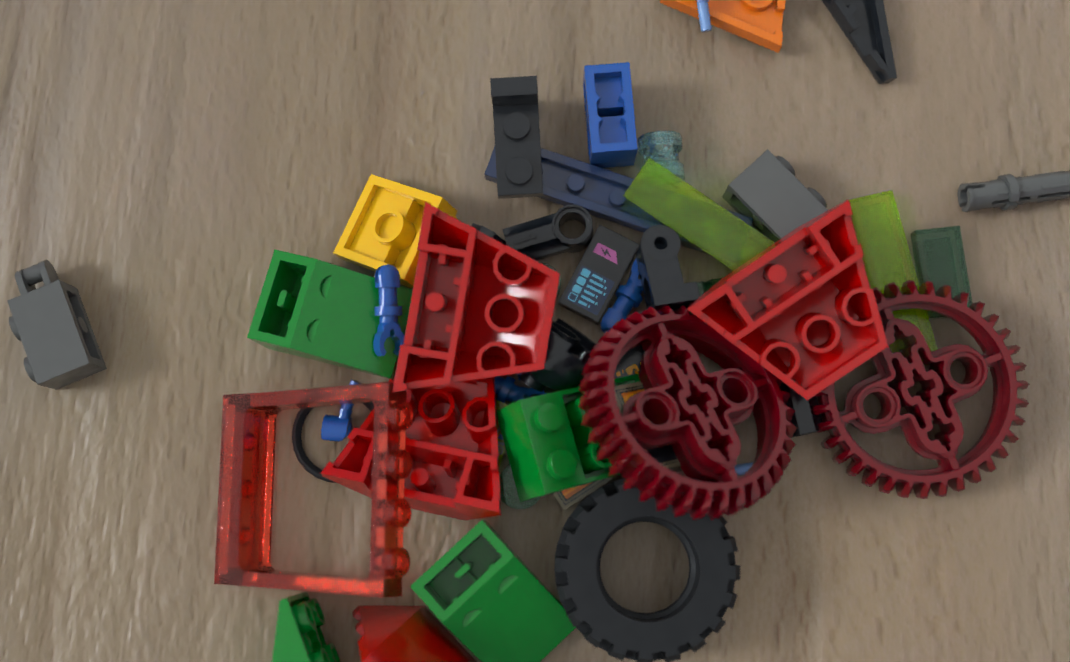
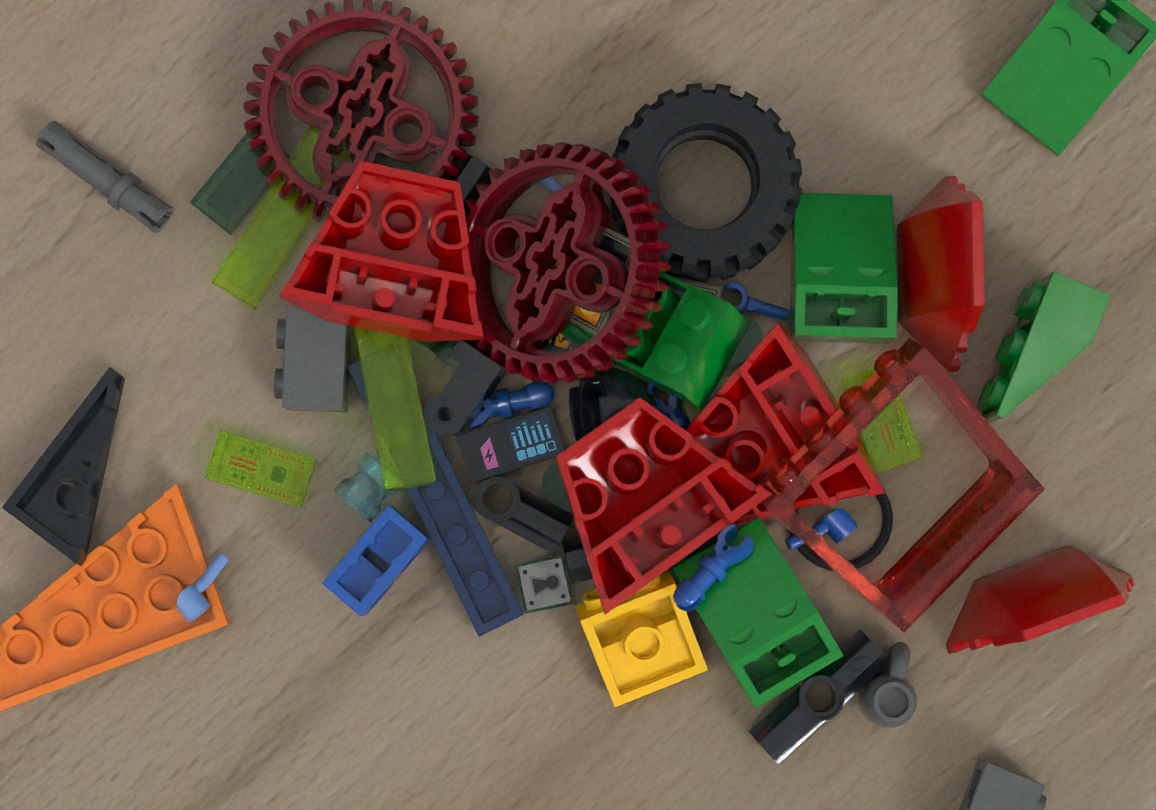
camera: 140 degrees left, 5 degrees up
(143, 505) = (1037, 599): none -> red wedge
(200, 350) = (889, 696): none -> dark grey piece
(246, 274) = (794, 721): none -> black piece
(351, 521) = (890, 436): none -> clear neon green tile
(488, 210) = (544, 584): none -> tile
(517, 137) = (473, 611): black bracket -> none
(531, 520) = (755, 306): none -> blue hand
(739, 109) = (260, 468): none -> clear neon green tile

